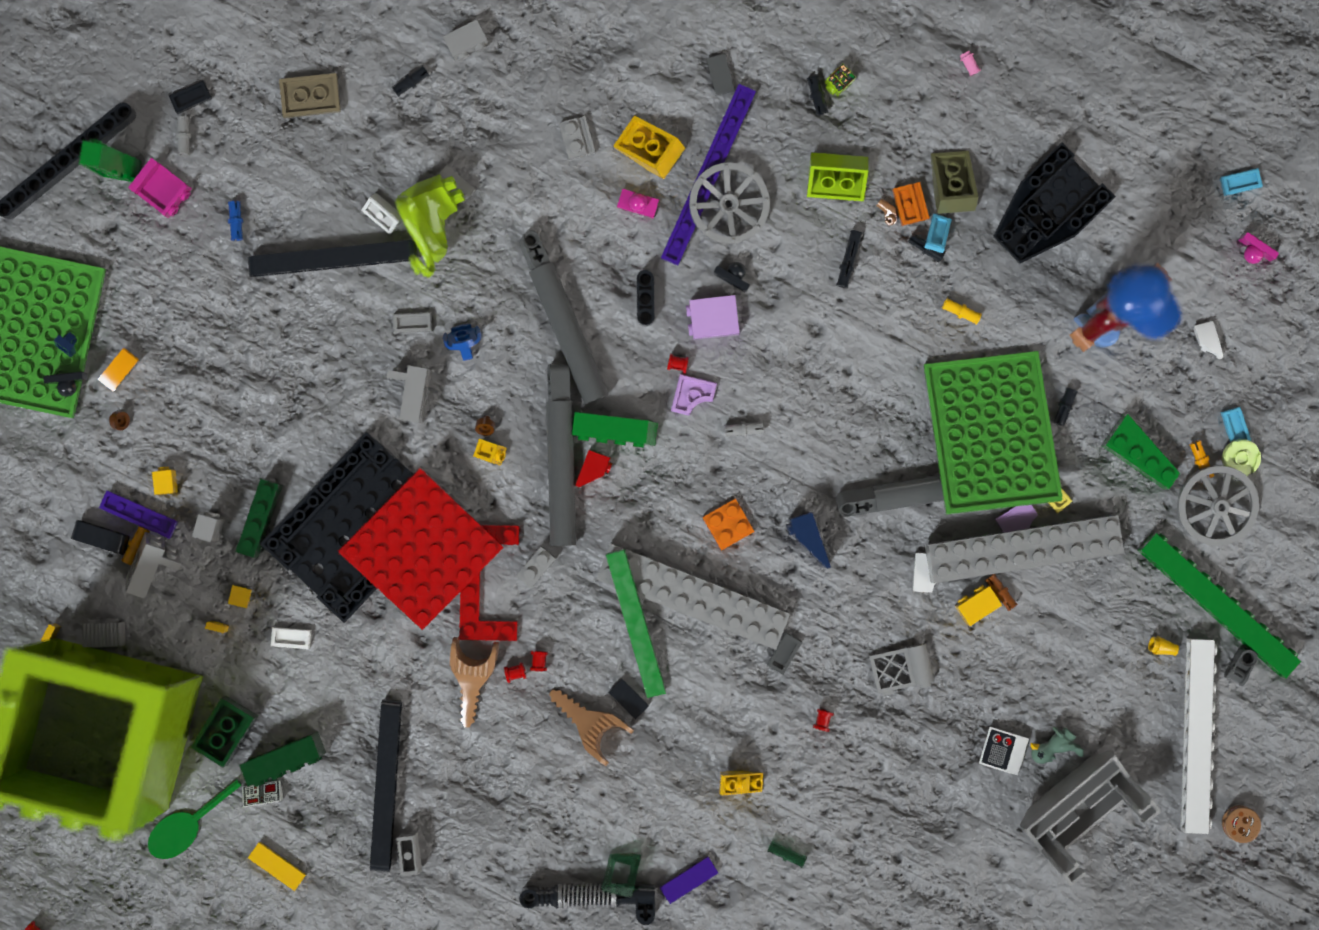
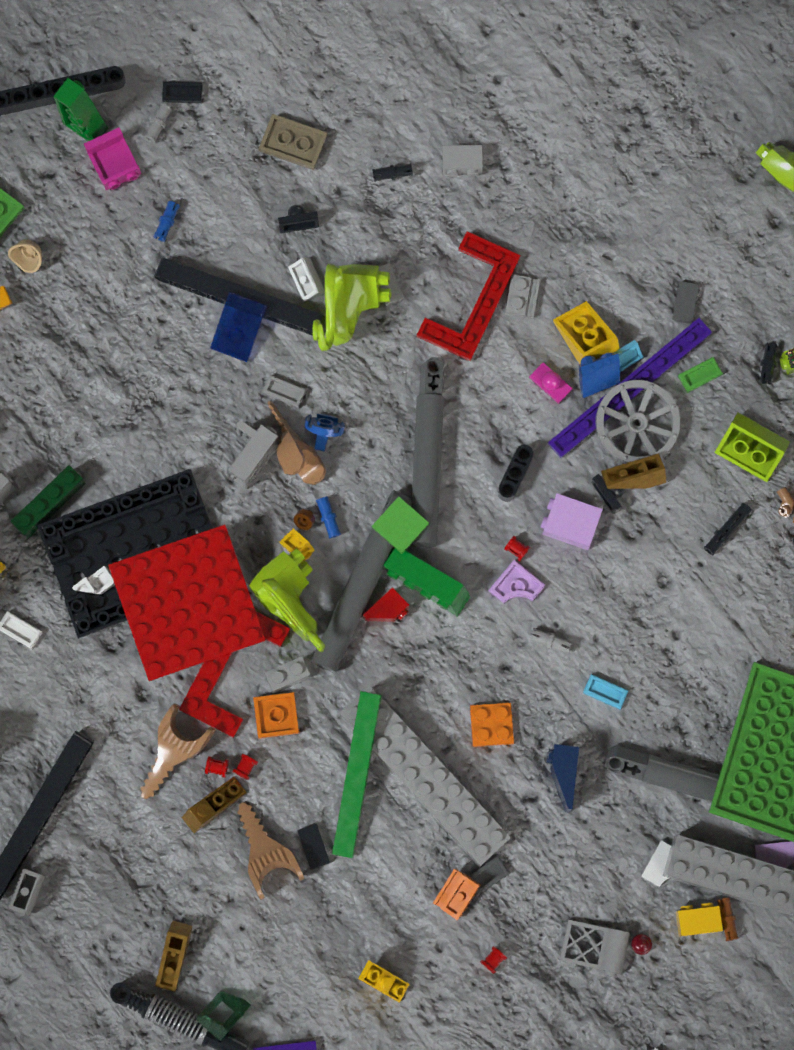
camera: 20 degrees right, 10 degrees down
(129, 311) = (26, 255): none -> tan helmet
(335, 569) = (96, 583): none -> white slope
(345, 285) = (238, 327): none -> clear blue tile
(349, 164) = (298, 219): none -> black tile
(448, 374) = (296, 455): none -> medium nougat animal
(493, 498) = (279, 590): none -> lime hips
(504, 414) = (328, 517): none -> blue pin
(528, 704) = (213, 804): none -> pearl gold slope
(543, 605) = (276, 715): none -> orange plate
(548, 118) = (503, 265): none -> red plate
(557, 845) = (173, 955): none -> pearl gold slope
(569, 394) = (400, 525): none -> bright green tile
(675, 177) = (599, 373): none -> blue slope
(689, 152) = (629, 355): none -> medium azure tile
(749, 250) = (636, 474): none -> pearl gold slope
(763, 133) = (700, 375): none -> bright green tile
(767, 681) = (456, 894): none -> orange plate
(810, 449) = (605, 692): none -> medium azure tile
(939, 647) = (641, 944): none -> dark red plate

